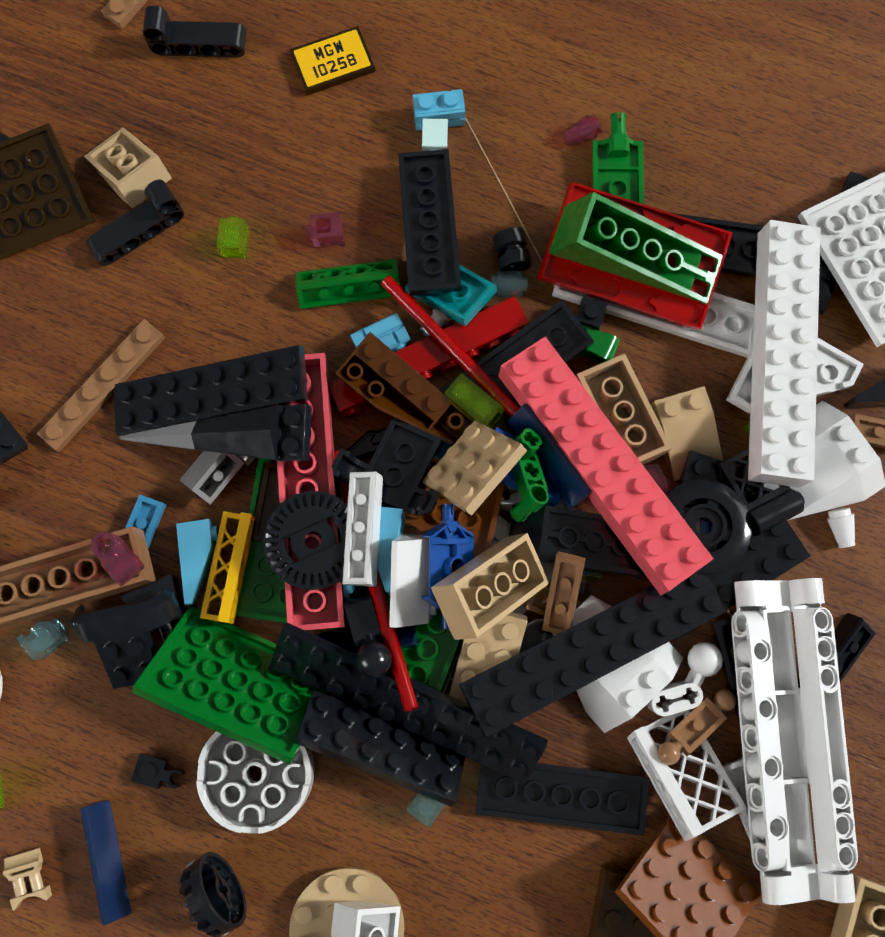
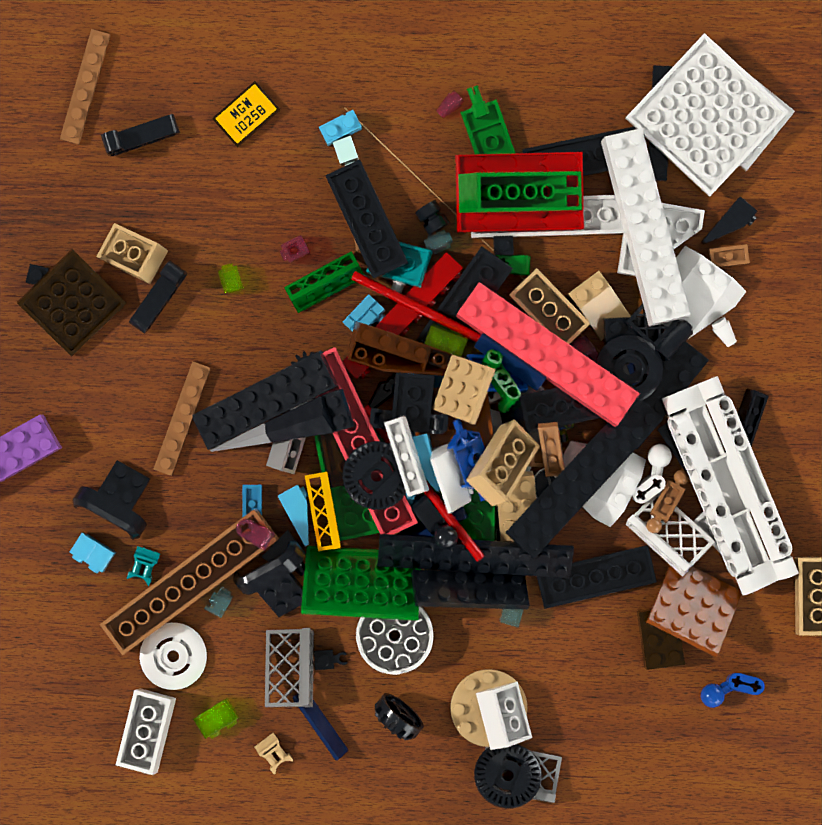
camera: 20 degrees left, 10 degrees up
(113, 779) = (305, 668): none -> light grey fence

